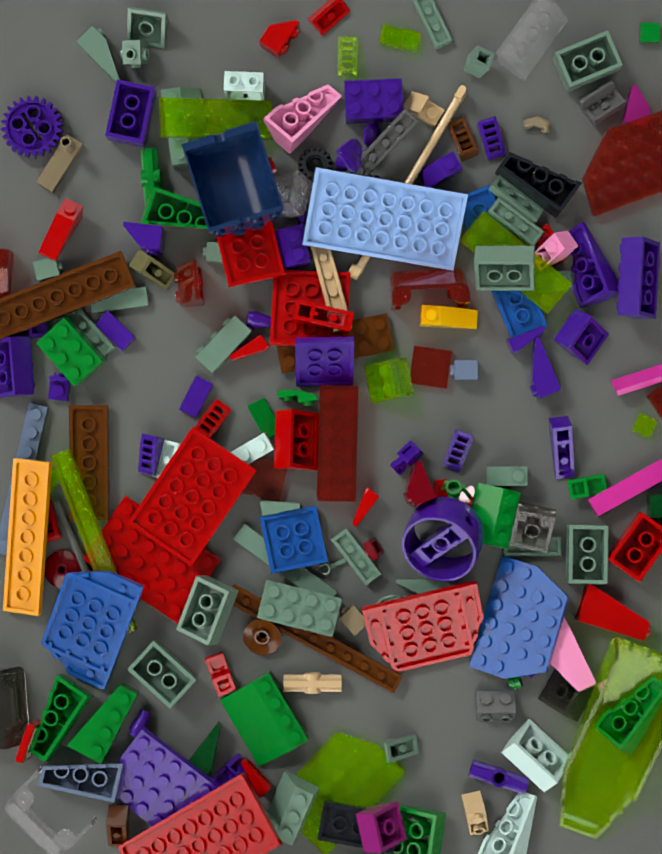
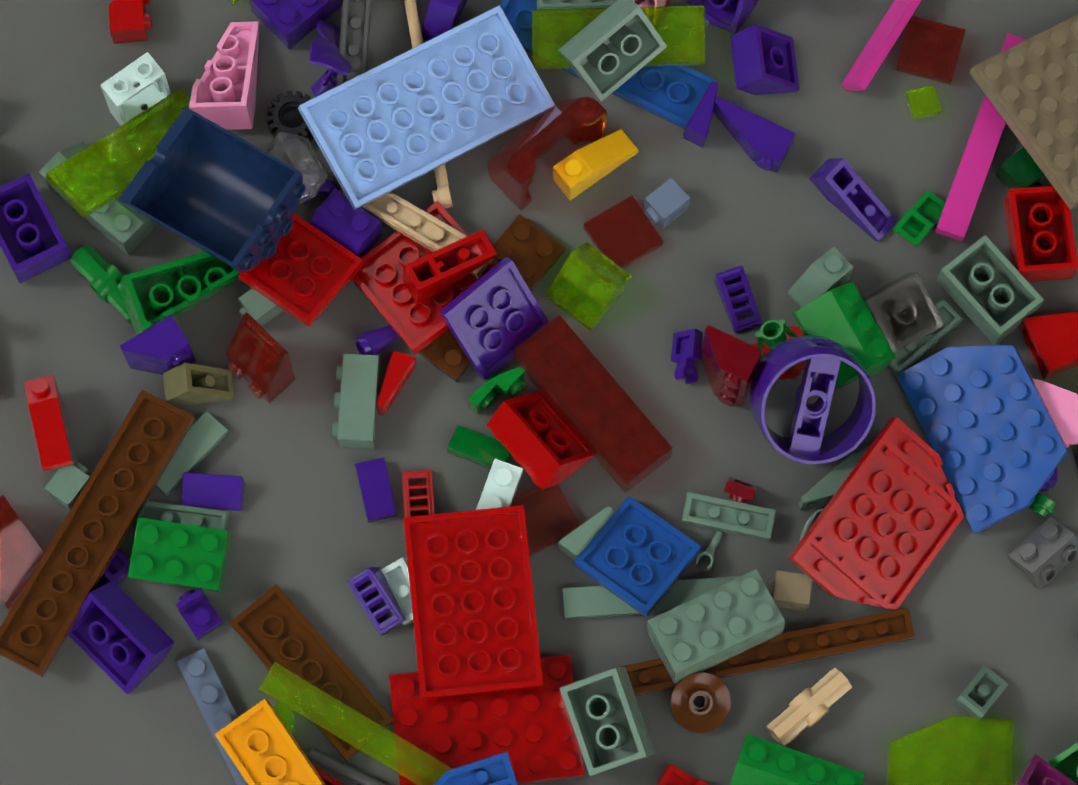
camera: 45 degrees left, 15 degrees down
(365, 505) = (686, 444): red slope -> none

